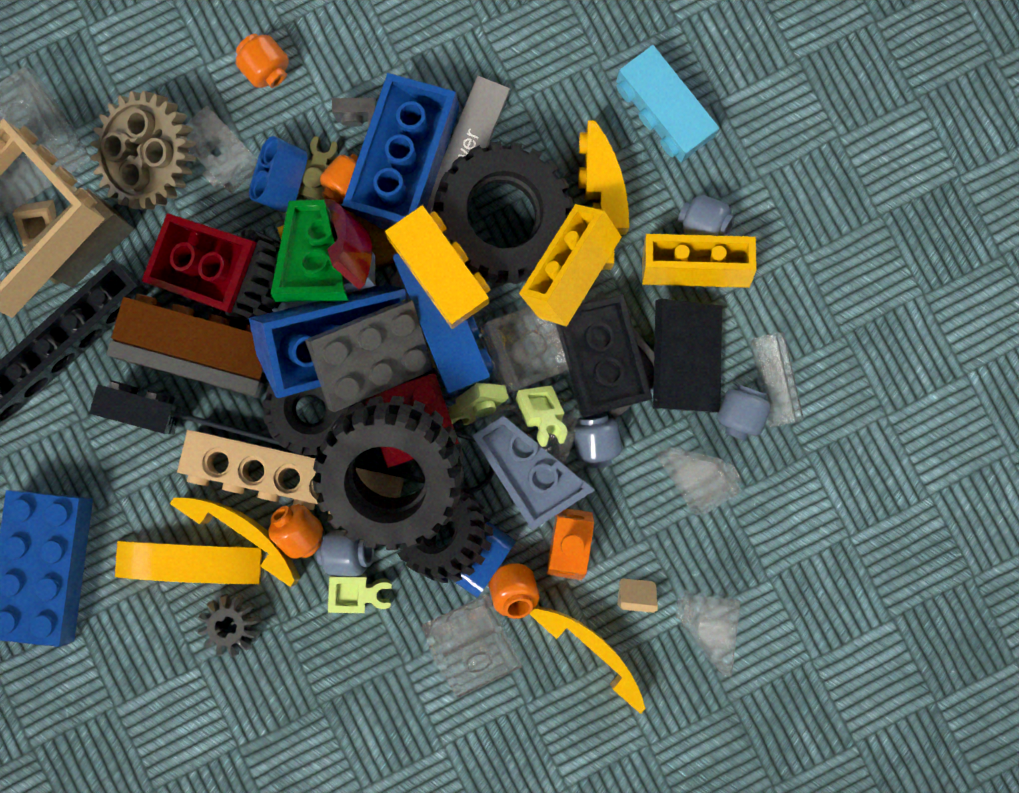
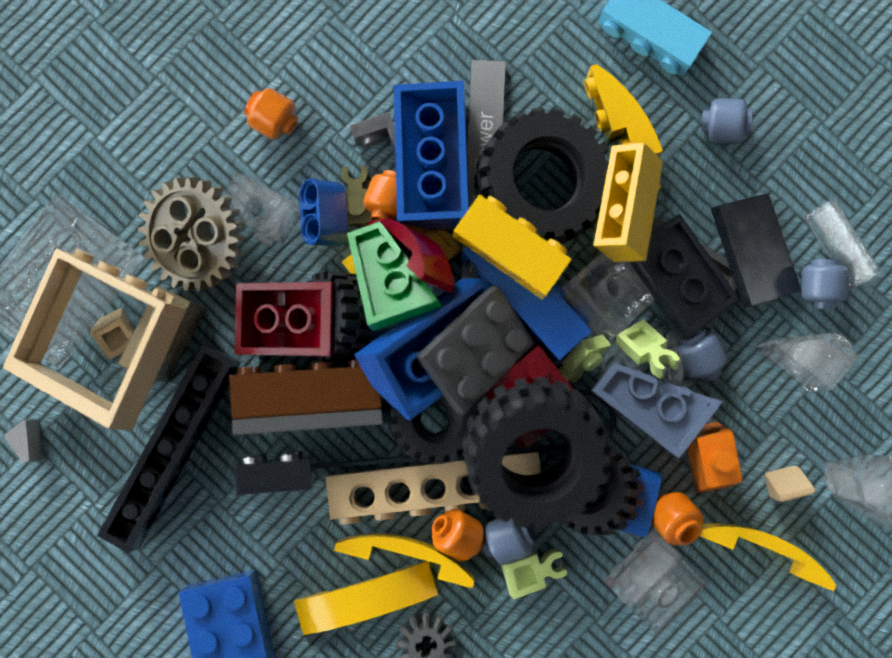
camera: 20 degrees left, 0 degrees up
(698, 260) = (736, 159): yellow brick -> none

